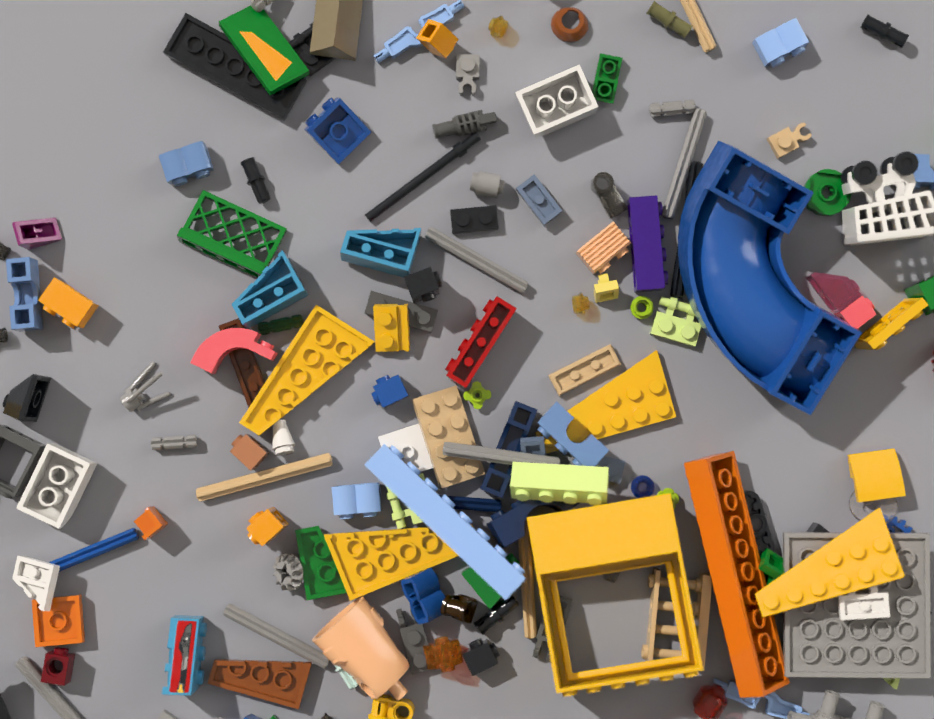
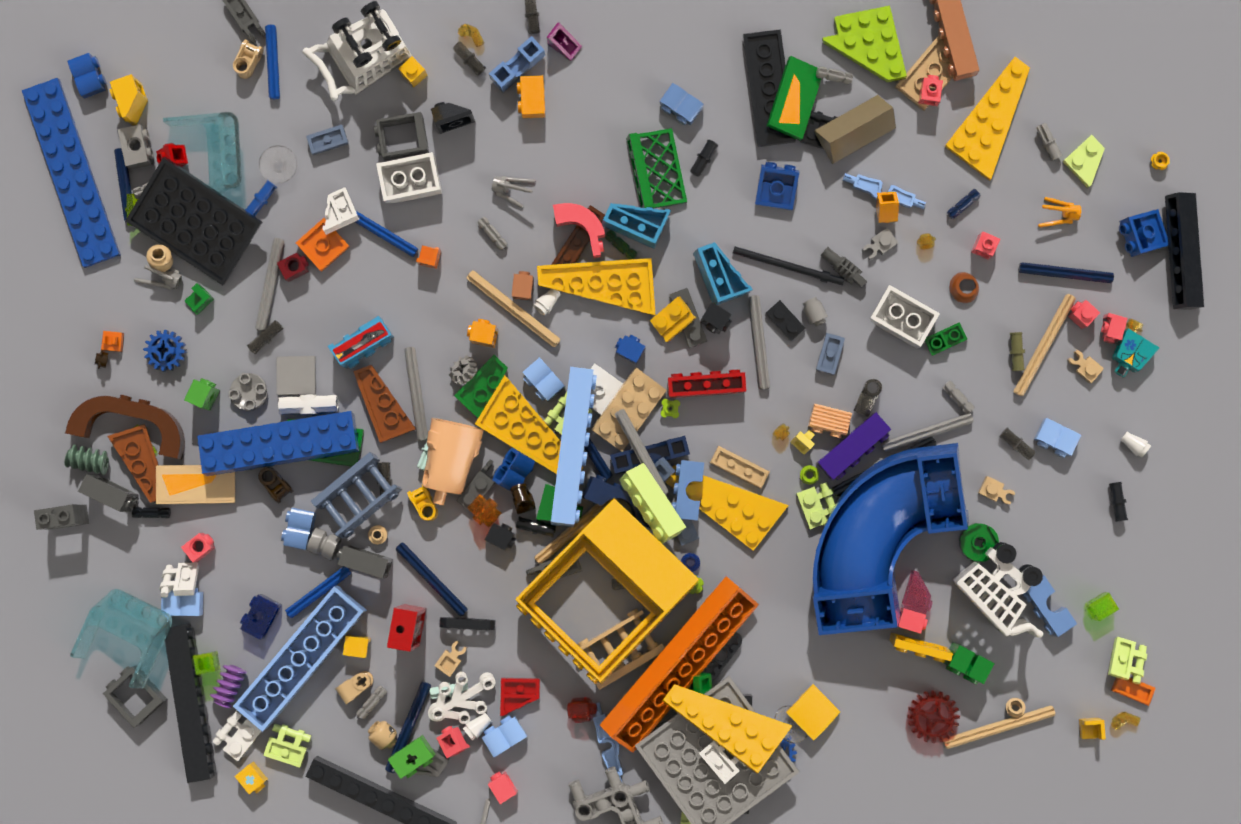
camera: 60 degrees right, 0 degrees up
(758, 85) = (1017, 443): none -> clear smoke axle

